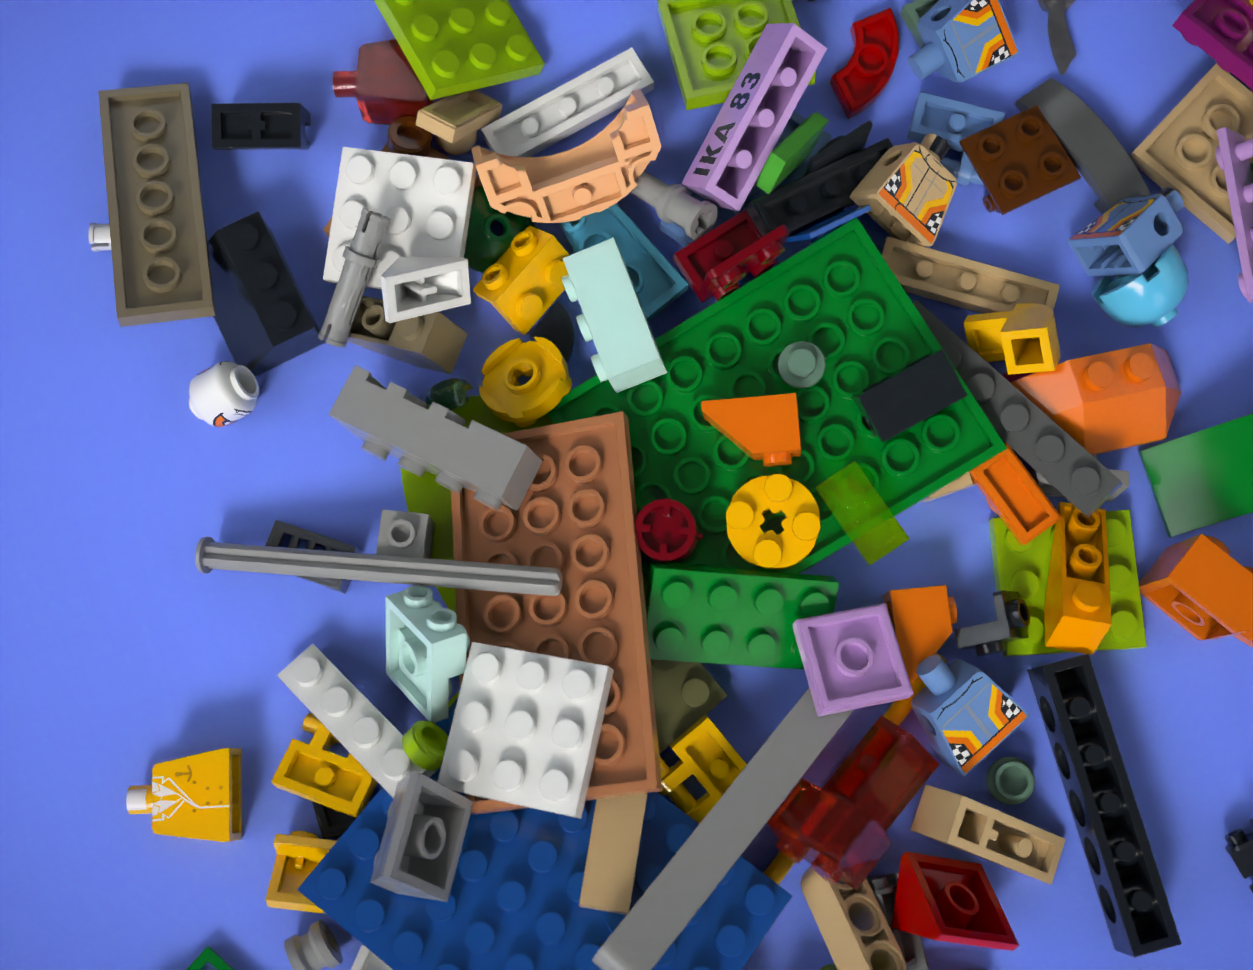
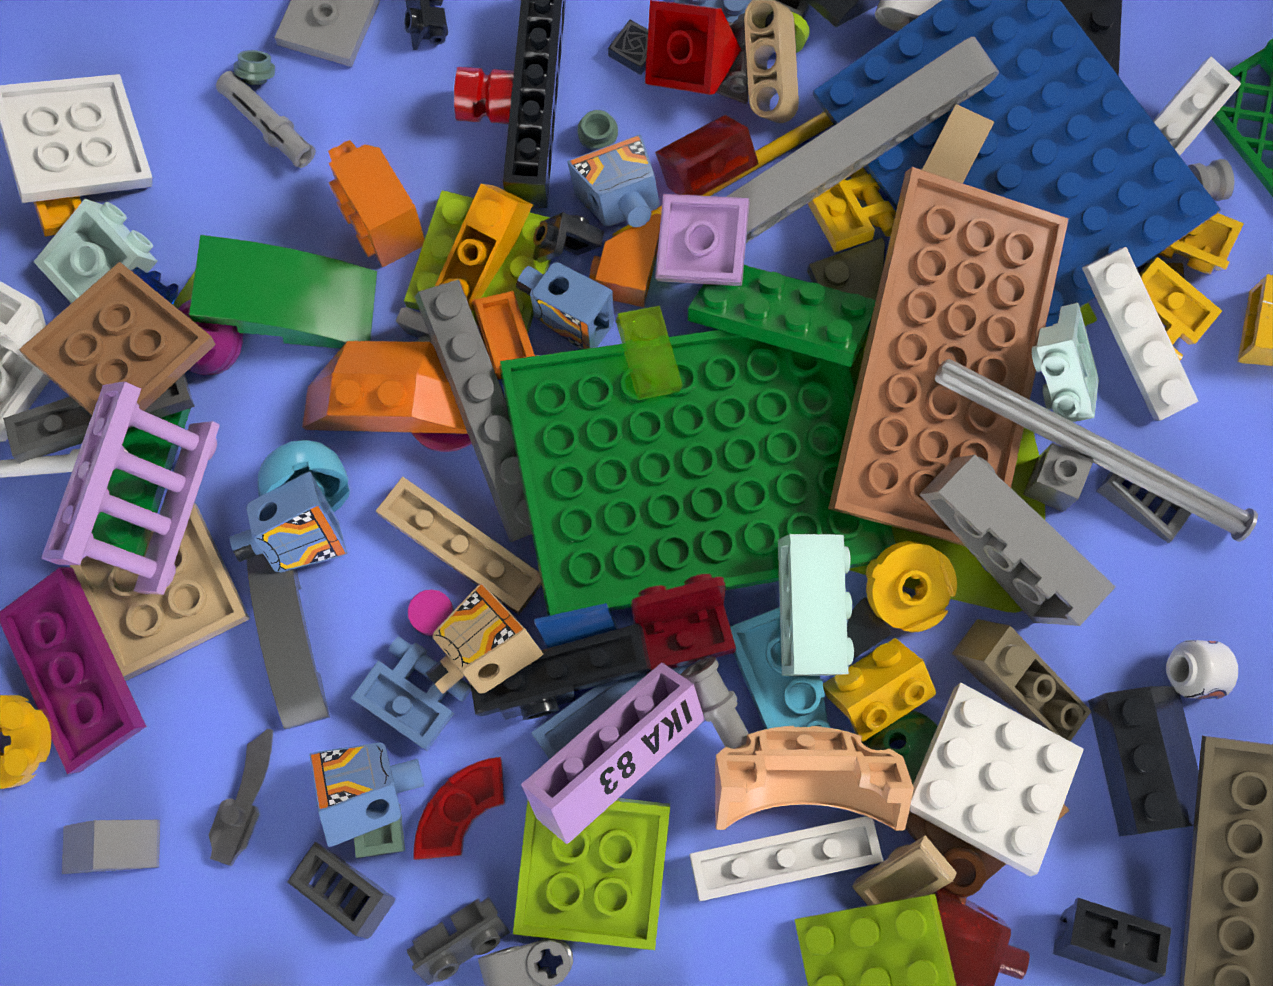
camera: 165 degrees left, 5 degrees down
(358, 265) = (1049, 737): light grey pin -> none
(422, 839) = (1117, 196): light grey slope -> none
(424, 286) = (995, 687): white slope -> none
(425, 745) = (1087, 282): lime tile -> none
(448, 393) = (987, 596): clear green animal -> none
(526, 729) = (1003, 259): white plate -> none
(667, 531) = (826, 393): dark red piece -> none
(759, 426) = (716, 453): orange slope -> none
(791, 152) = (587, 707): bright green tile -> none
(800, 525) = (717, 394): yellow plate -> none
(801, 364) = (655, 494): sand green plate -> none
(829, 834) = (771, 113): clear red brick -> none
(909, 395) = (572, 428): black hinge -> none
(944, 548) = (569, 304): none -> medium blue torso
(966, 217) = (429, 611): none -> dark pink tile
(988, 833) = (640, 97): tan slope -> none
(1018, 903) = (630, 47): none -> black tile
(1019, 161) = (359, 642): reddish brown hinge -> none
(1020, 337) = (438, 463): yellow brick -> none
(1159, 769) = (482, 95): none -> red wheel

